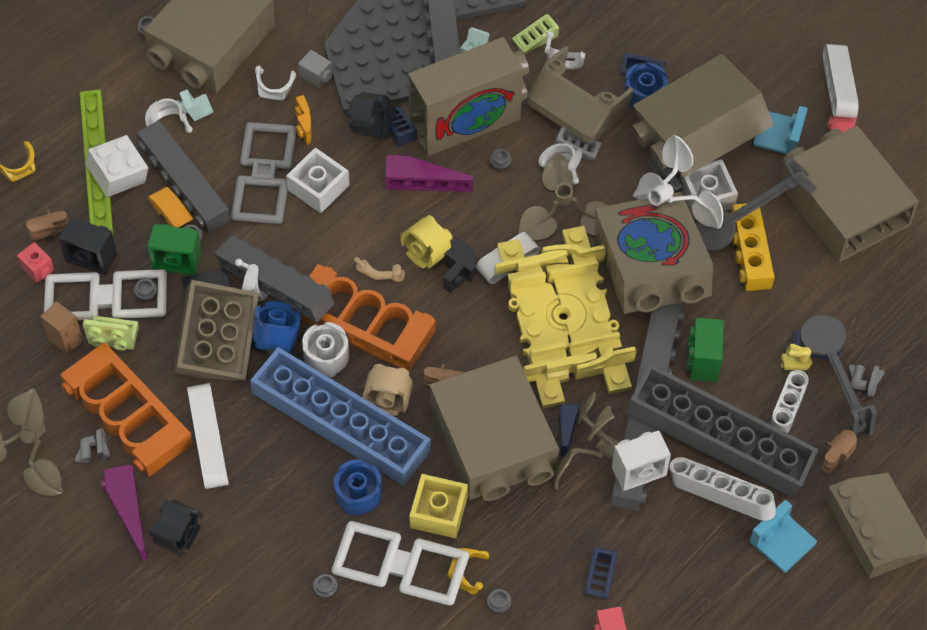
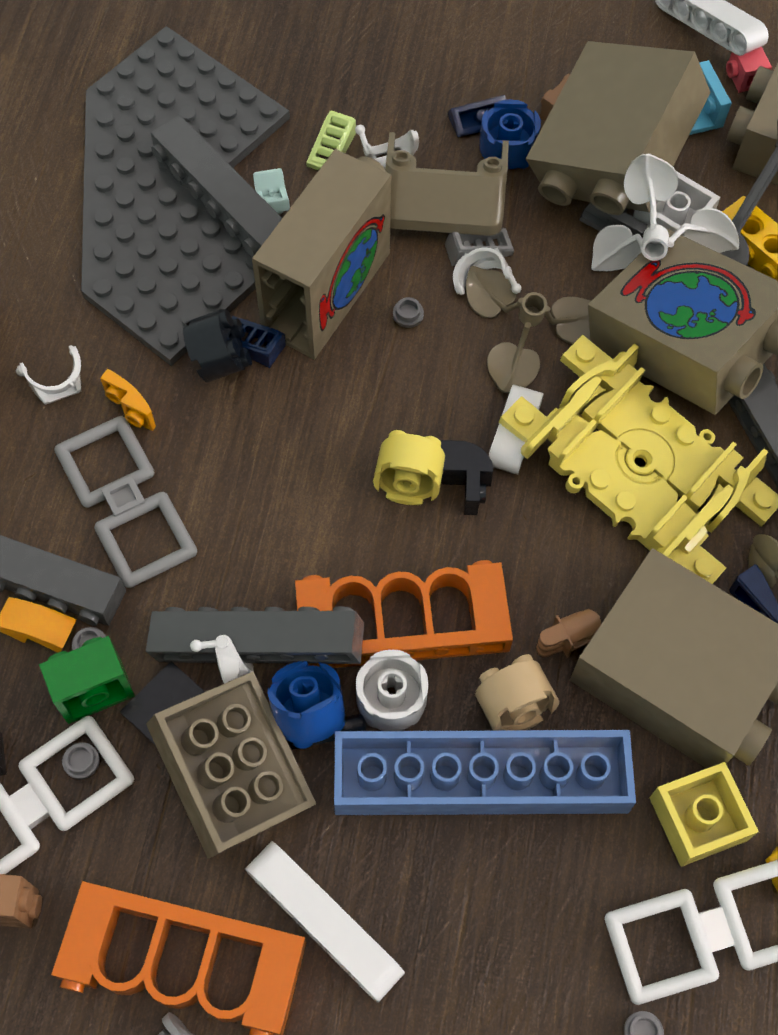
camera: 35 degrees left, 5 degrees up
(114, 332) = (78, 856): yellowish green bracket -> none
(315, 69) = (95, 328): light grey brick -> none
(318, 180) = (208, 468): white brick -> none
(357, 487) = (602, 866): blue brick -> none
(365, 268) = (396, 532): tan piece -> none
(416, 174) = (325, 388): magenta slope -> none

